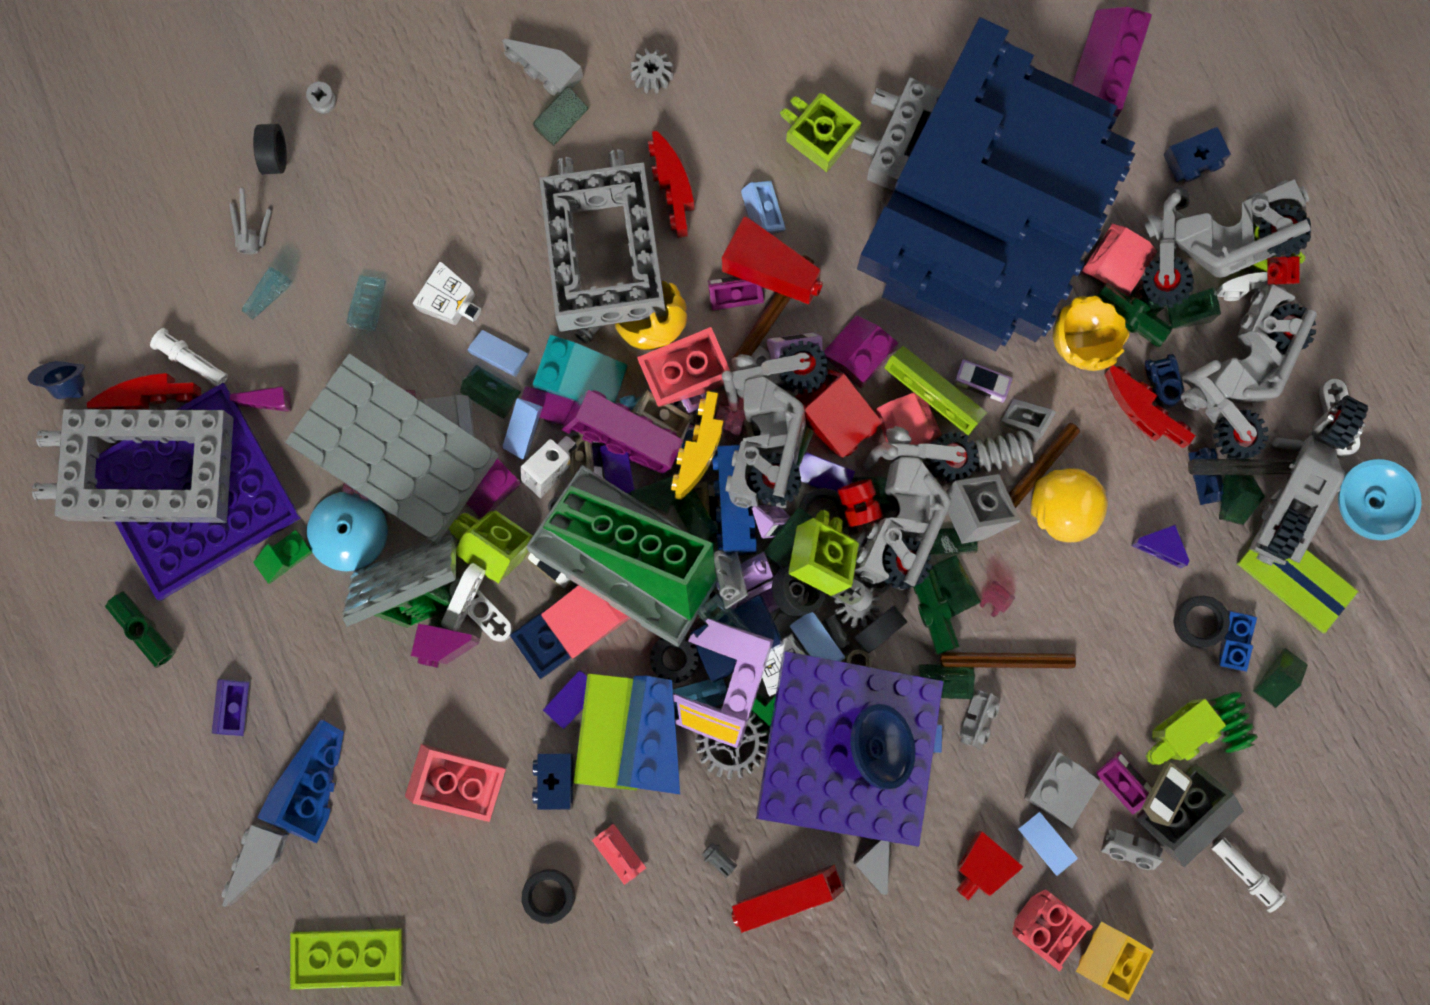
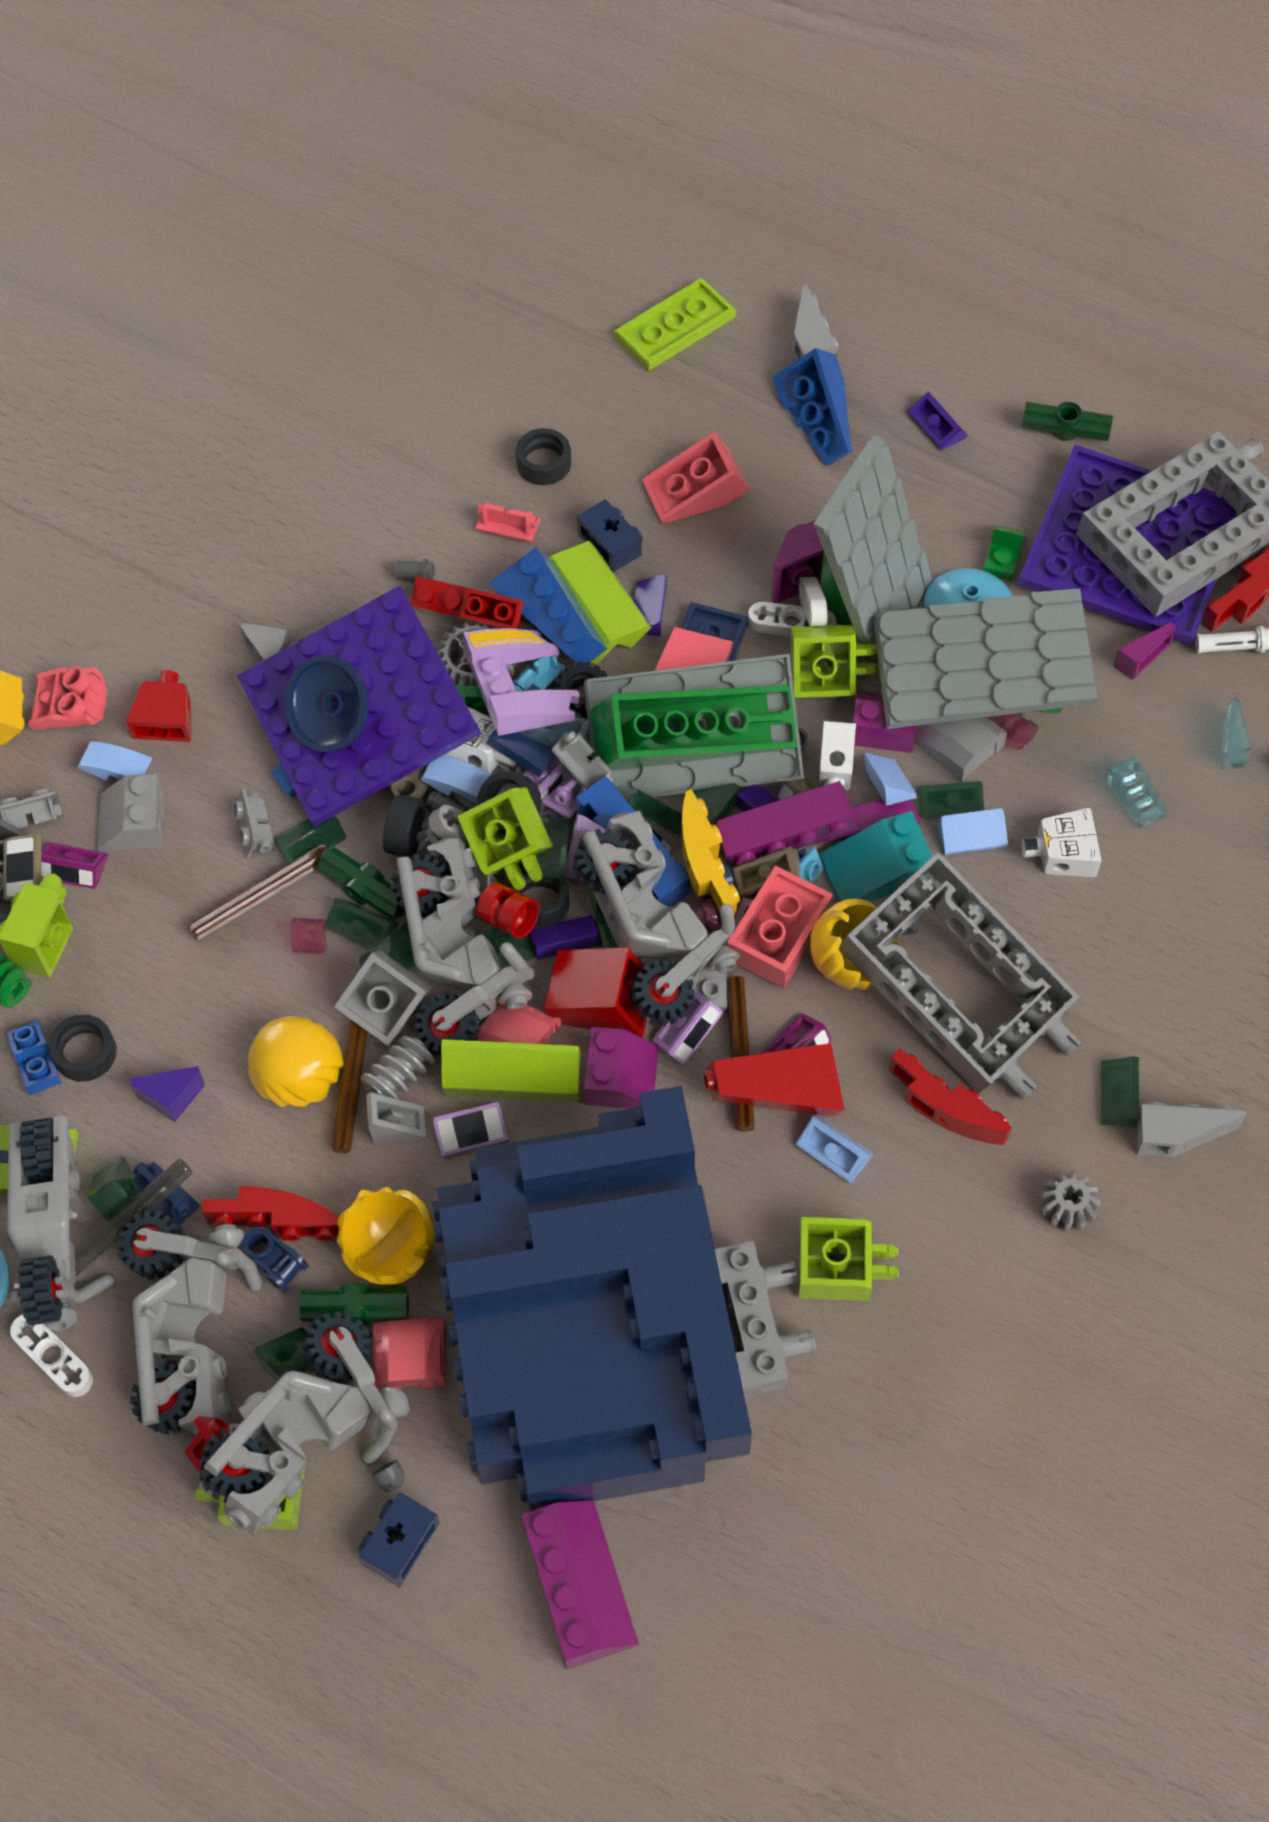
camera: 140 degrees right, 20 degrees down
(702, 787) = (466, 603): none -> red slope
(788, 899) = (326, 576): red slope -> none

